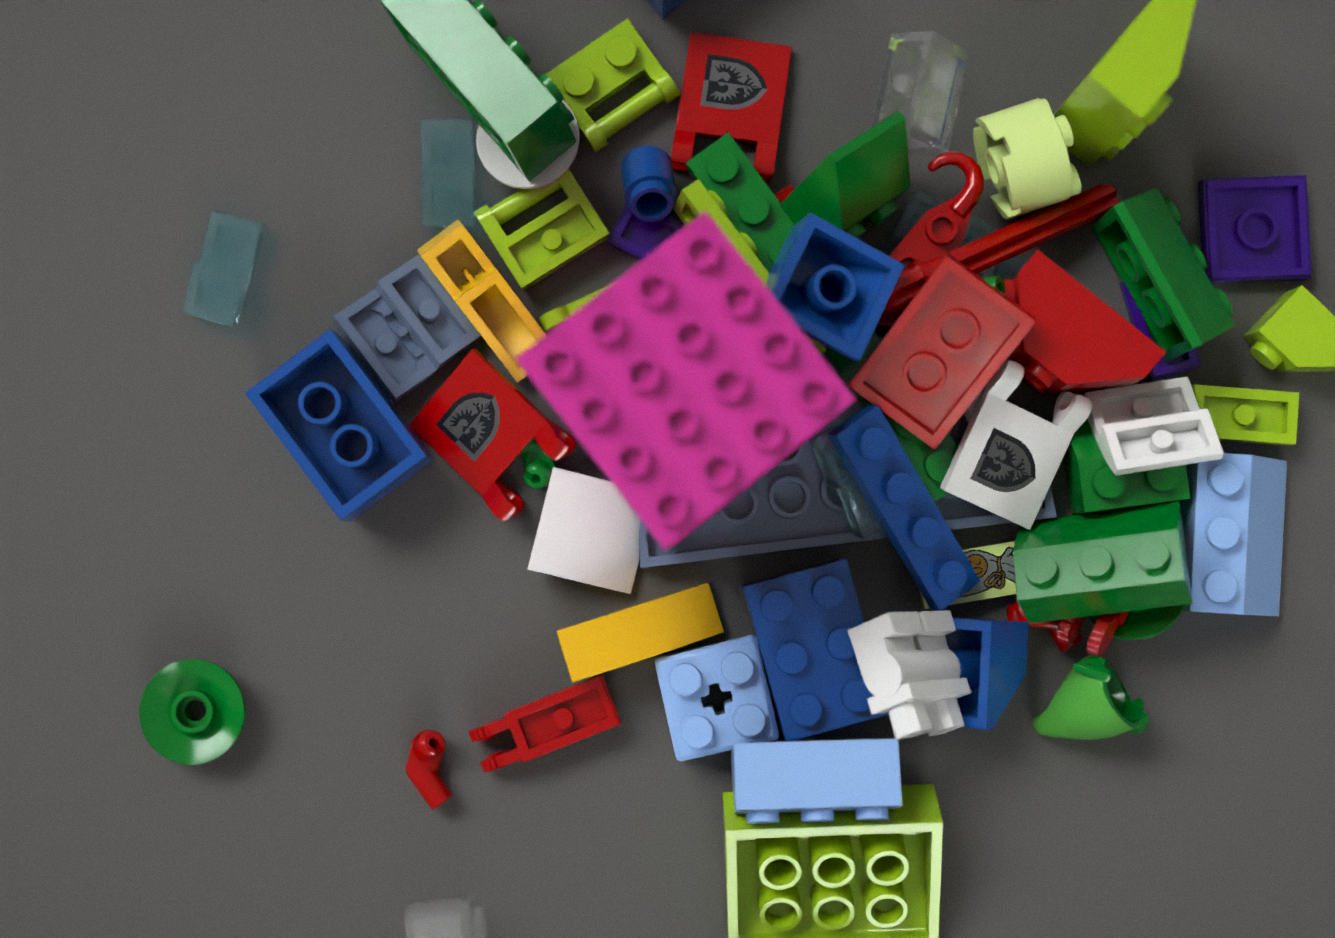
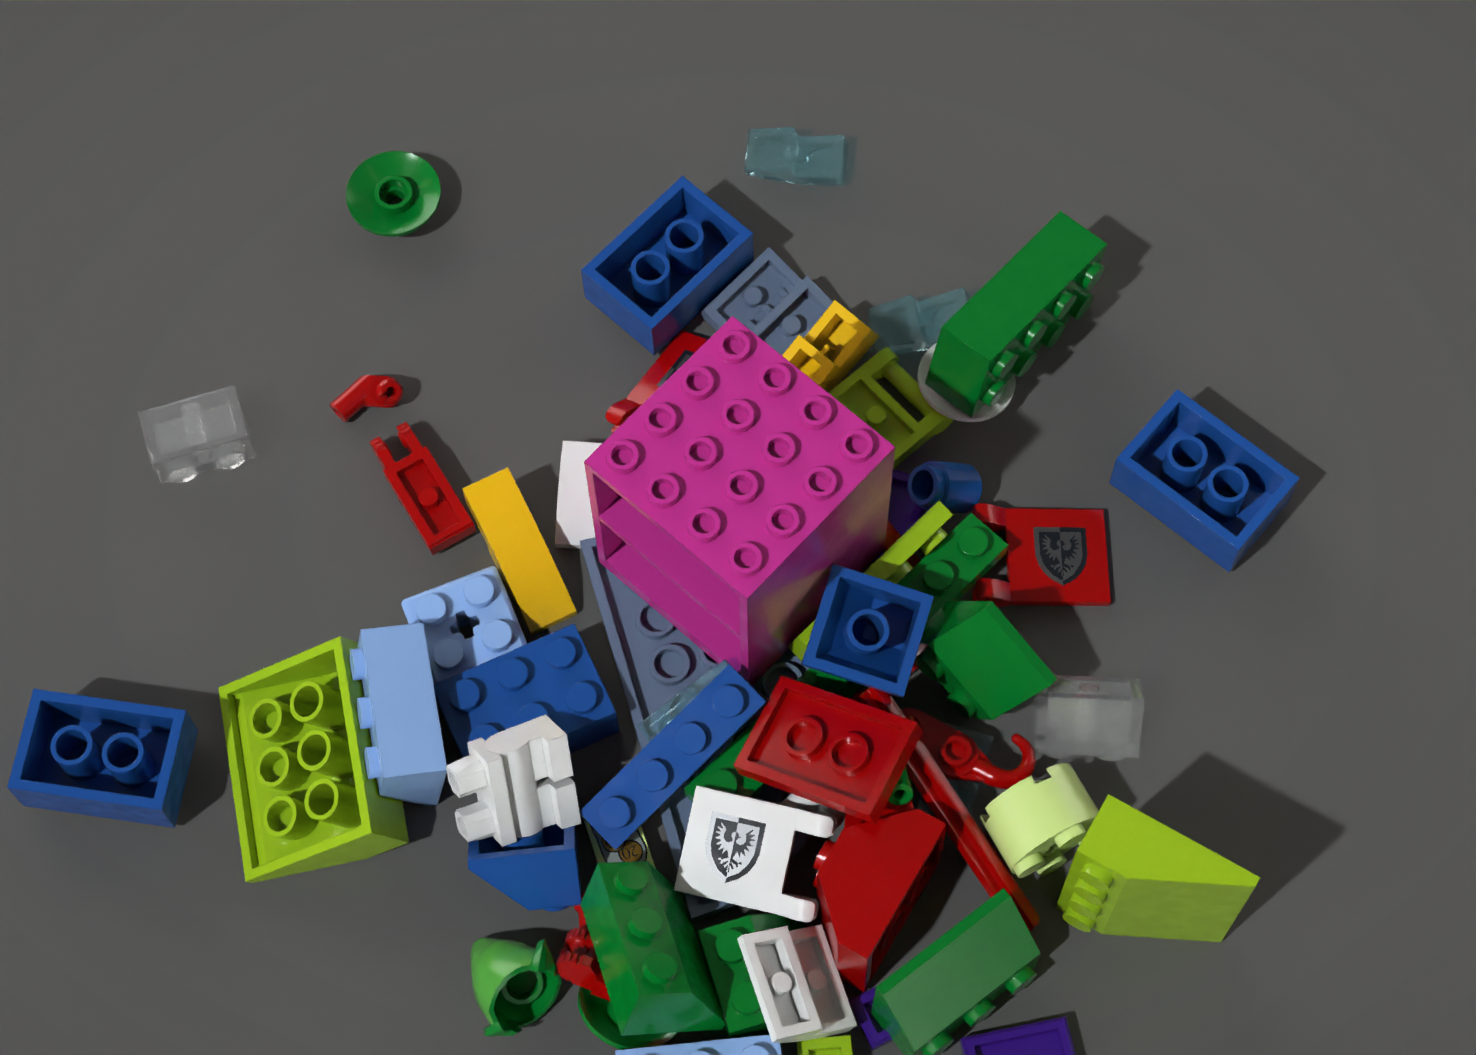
camera: 80 degrees right, 20 degrees down
(605, 70) = (1044, 437): lime plate -> none

